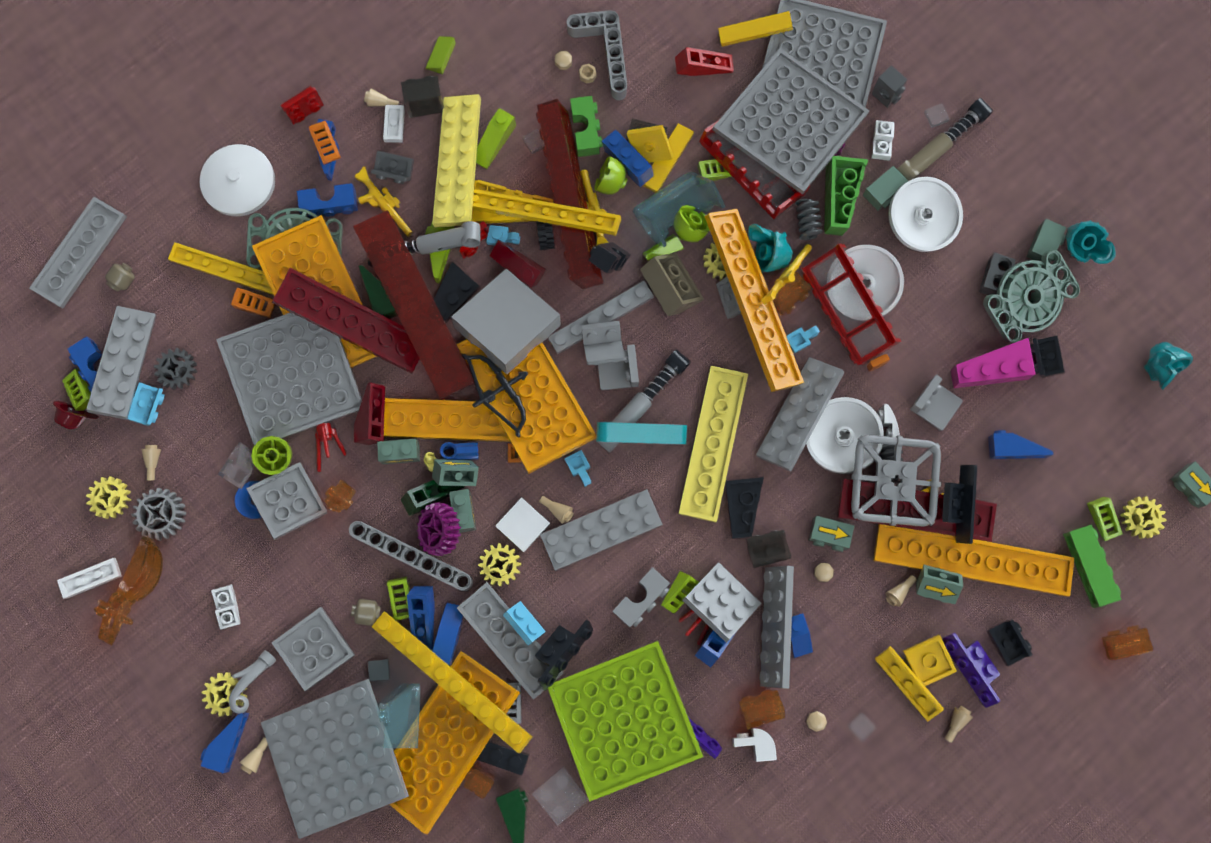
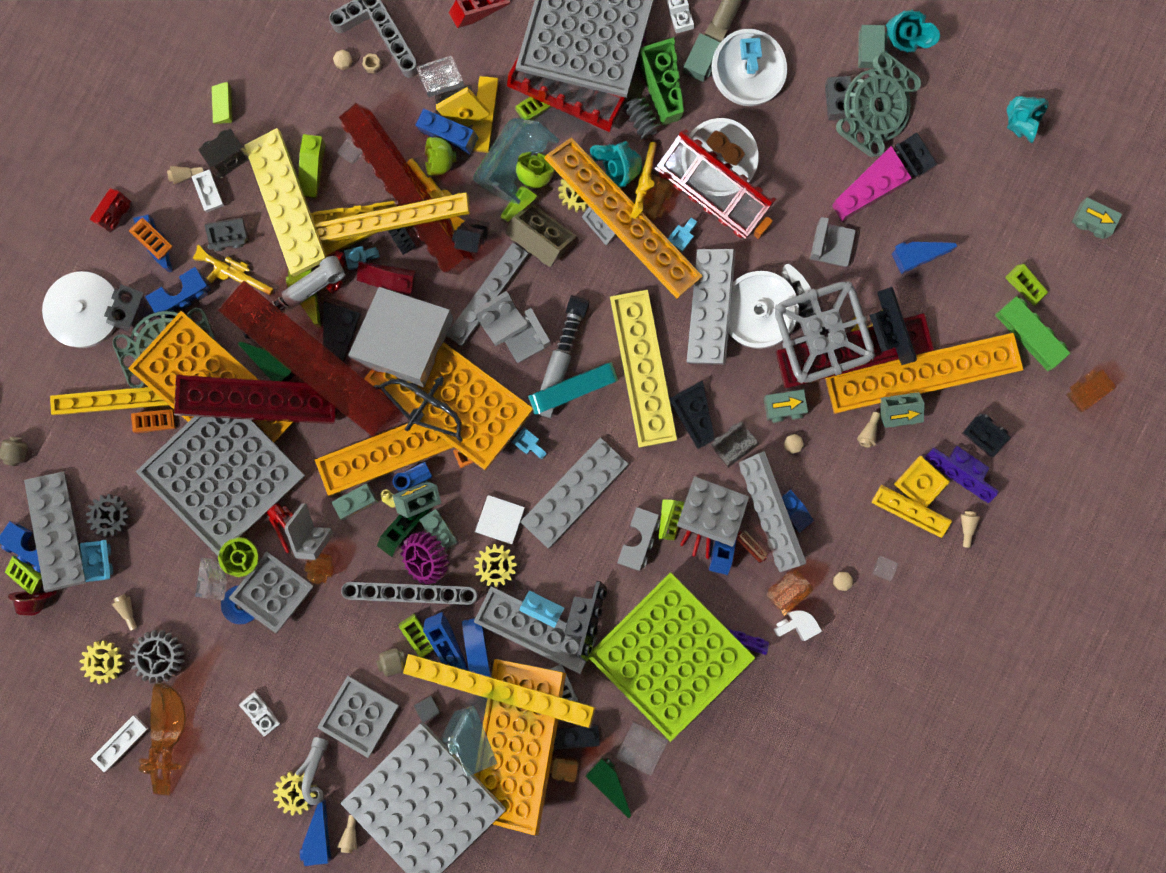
camera: 20 degrees left, 5 degrees up
(278, 196) = (128, 309): none -> dark grey brick
(338, 461) = (304, 538): none -> light grey bracket
(370, 417) = (314, 480): dark red slope -> none
(560, 511) = (529, 492): tan cone -> none
(584, 111) = (384, 103): bright green arch -> none
(642, 108) = (439, 76): none -> clear plate
(744, 650) = (752, 546): none -> clear red piece
(876, 279) = (721, 144): none -> reddish brown brick
(934, 201) = (751, 51): none -> medium azure plate
(1152, 517) = (1067, 264): light yellow gear -> none

